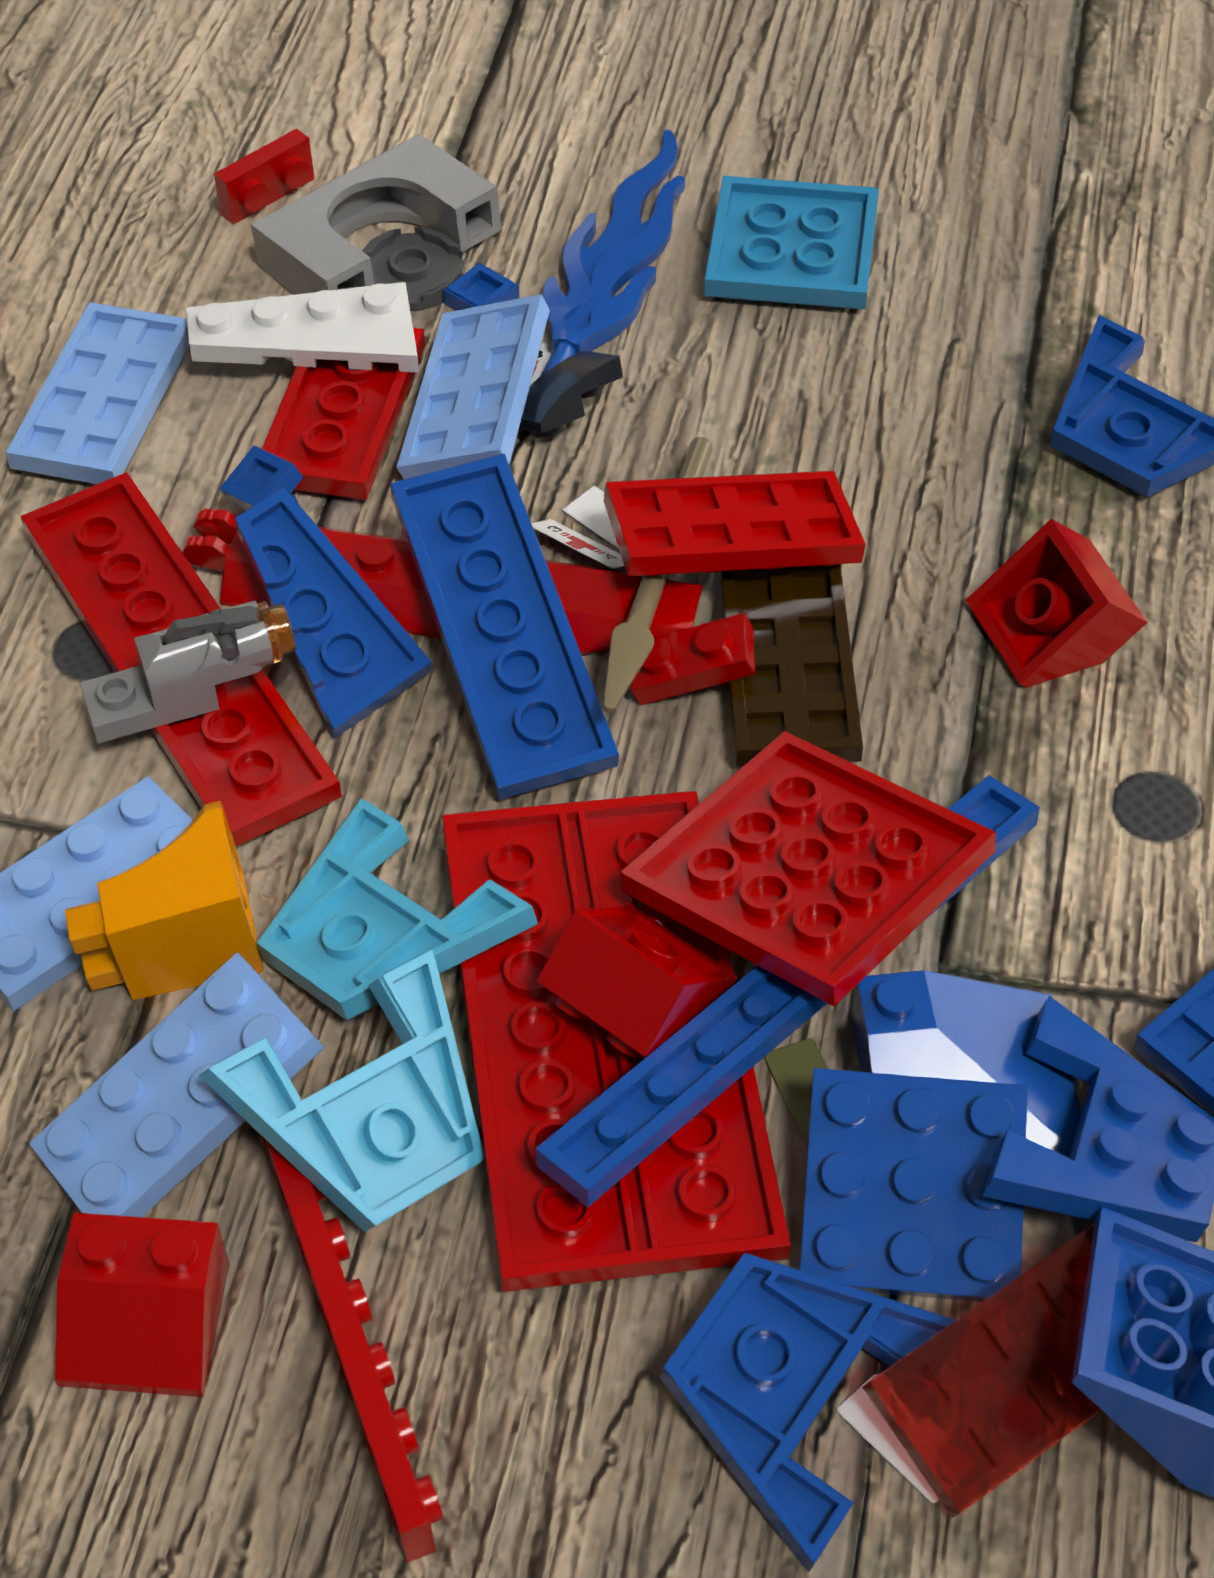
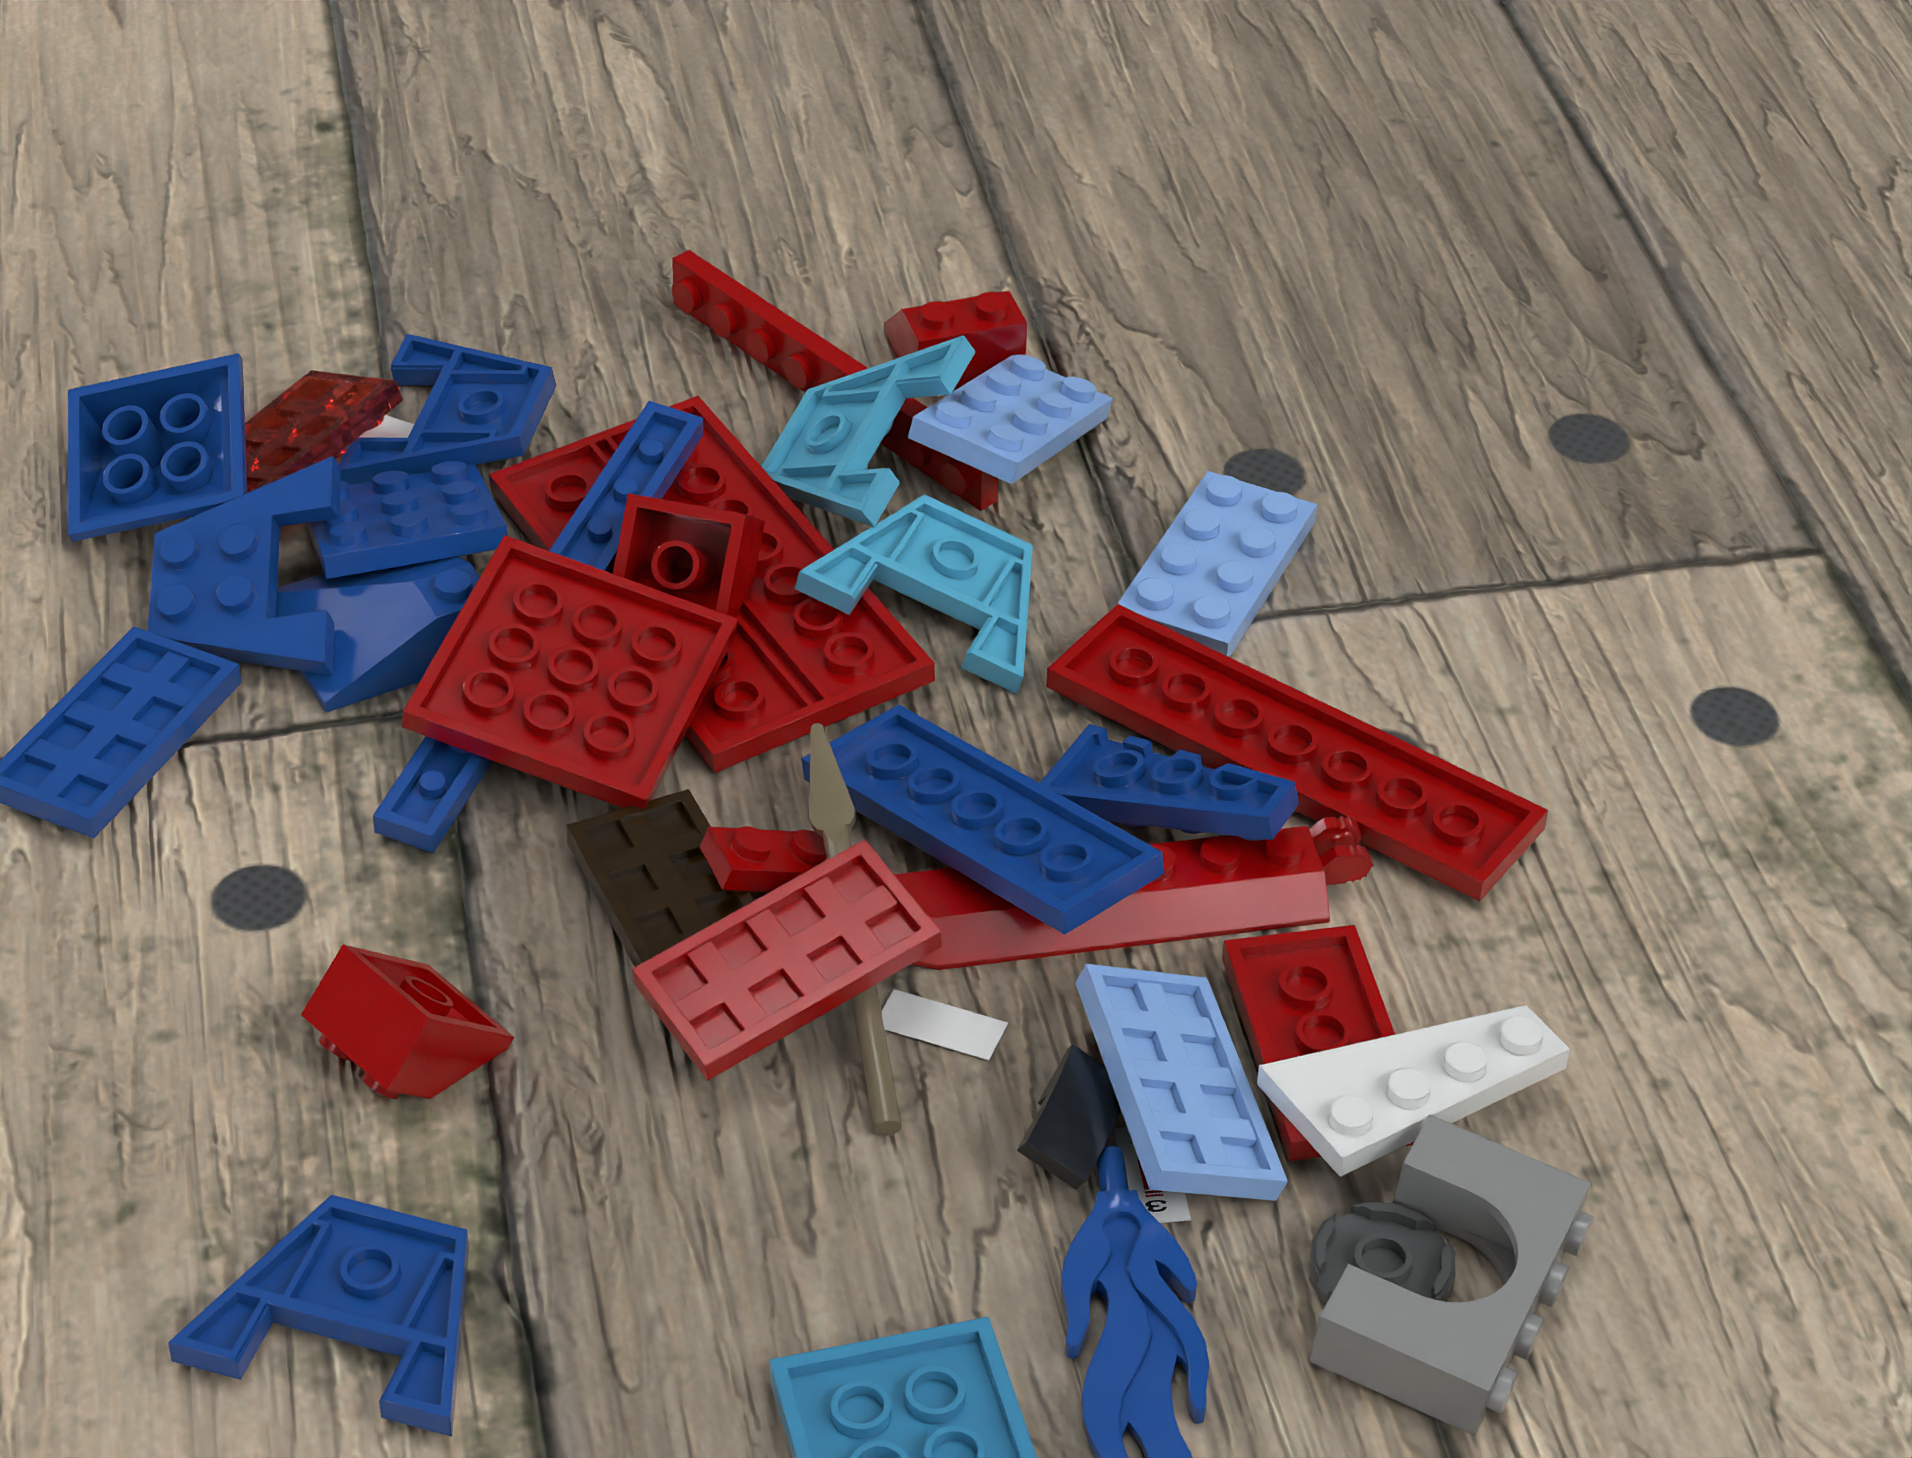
camera: 155 degrees right, 10 degrees down
(100, 394) = (1599, 979): light blue plate -> none
(169, 916) = (1098, 517): light orange hips -> none
(184, 666) = (1239, 674): light grey plate -> none
(259, 477) = (1324, 894): blue tile -> none
(264, 176) = (1644, 1334): red plate -> none
(478, 288) = (1269, 1254): blue tile -> none
(580, 543) = (965, 975): white sticker -> none

